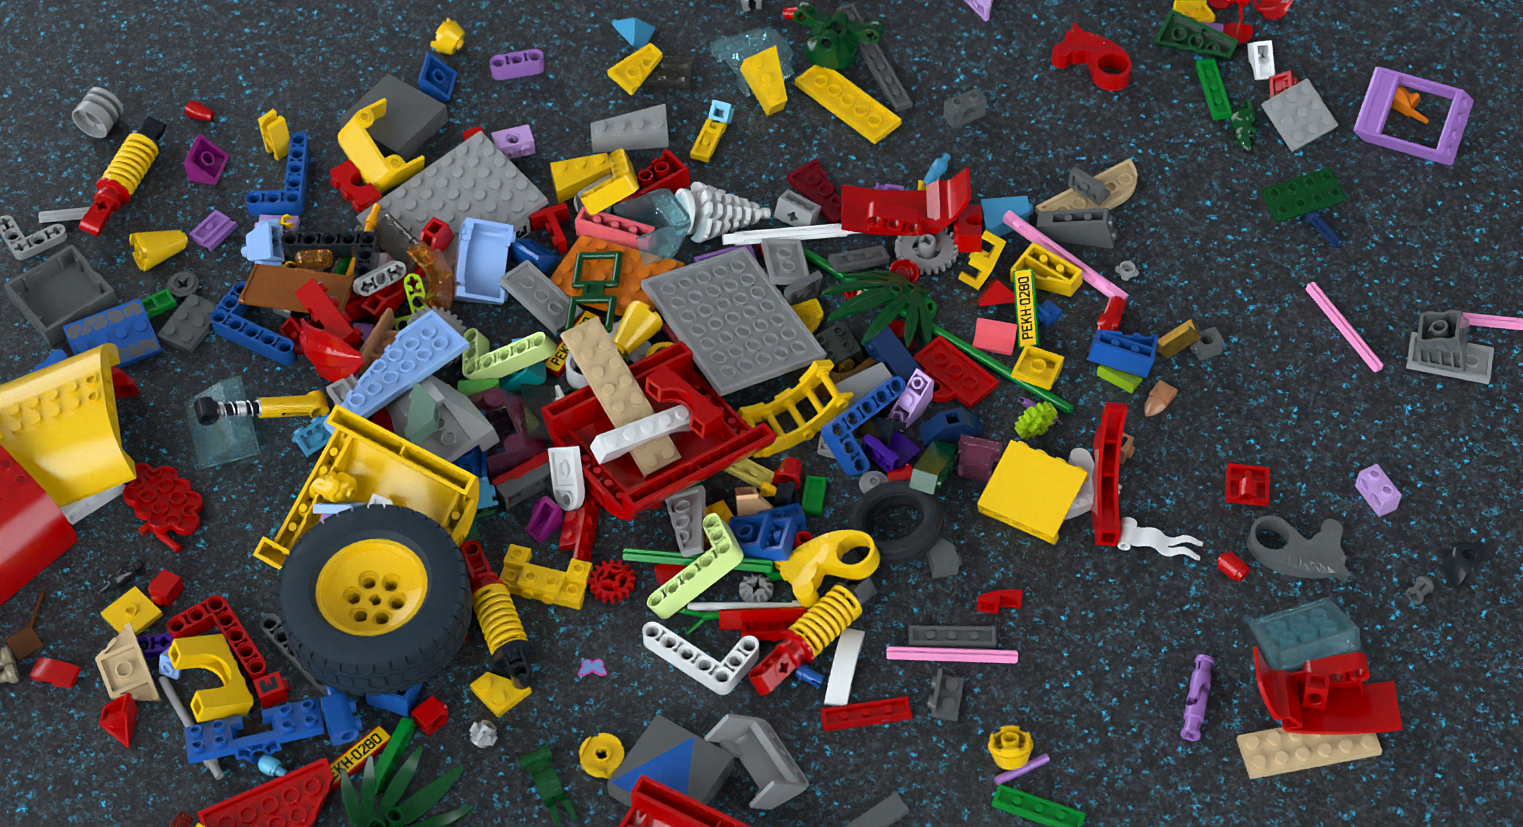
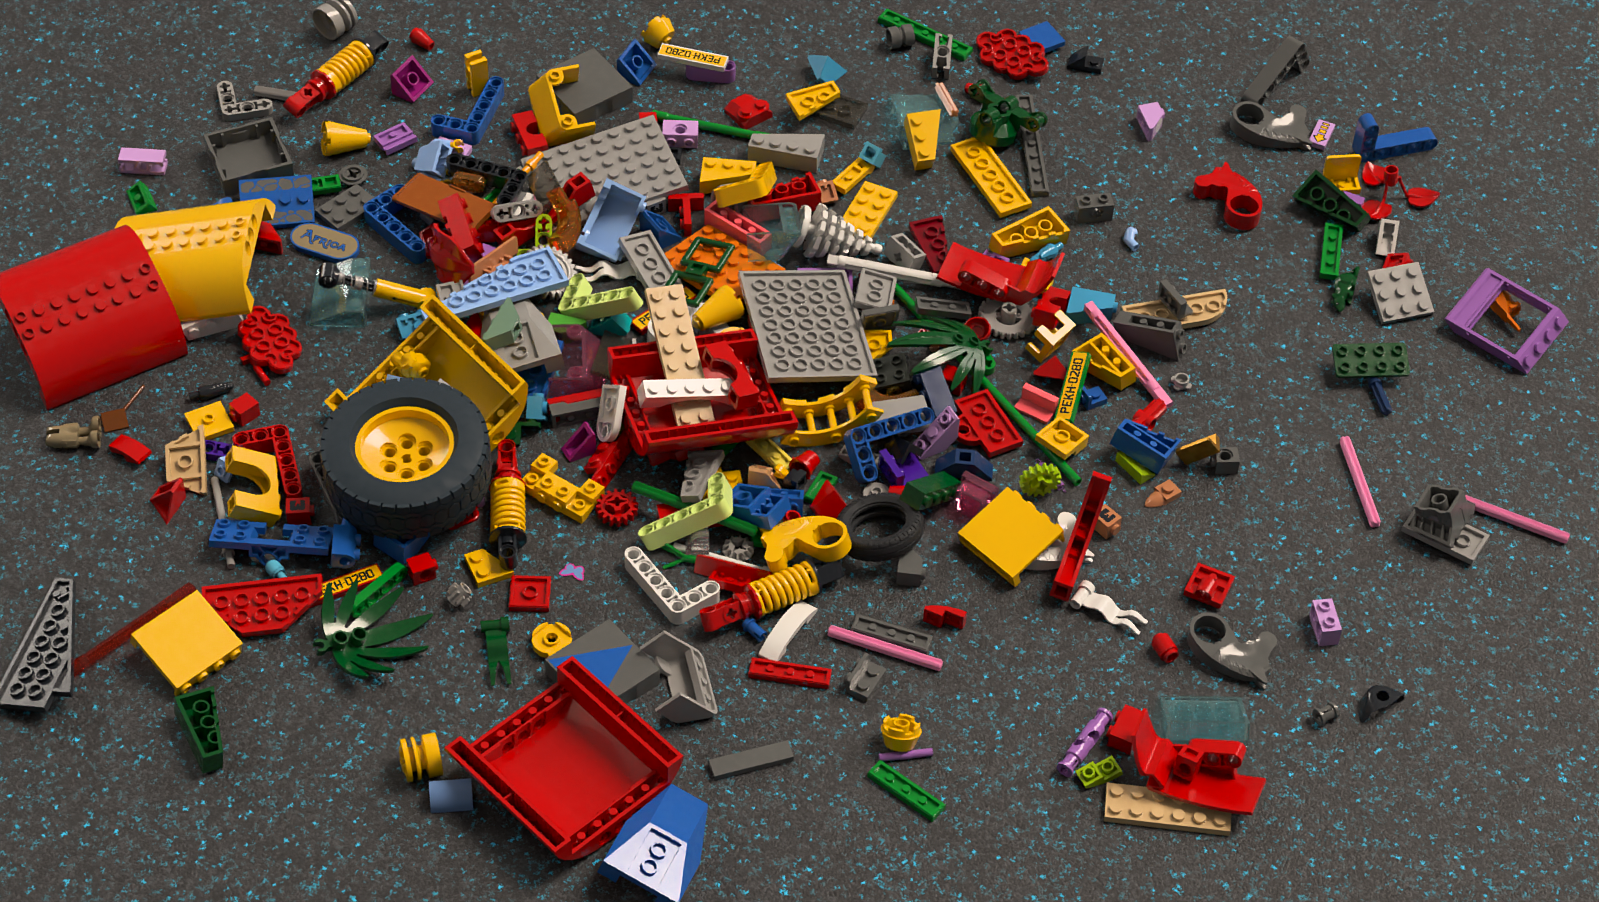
camera: 15 degrees right, 5 degrees down
(181, 369) = (324, 242): none -> dark tan tile
(489, 128) = (709, 126): none -> green piece
(496, 56) = (693, 57): none -> tile
(506, 314) = (614, 271): none -> white flag
(557, 707) = (530, 593): none -> red tile
(573, 98) = (748, 111): none -> red slope
(693, 164) = (828, 191): none -> nougat bracket
(715, 598) = (697, 543): none -> clear brick
(739, 169) = (870, 208): none -> yellow plate
(772, 32) = (946, 99): none -> axle
(830, 510) = (827, 501): none -> red slope
(914, 154) = (1029, 234): none -> yellow wedge
(1011, 130) = (1129, 238): none -> light blue arm
(1224, 726) = (1100, 773): none -> lime slope
(1234, 669) = (1121, 732): none -> red brick

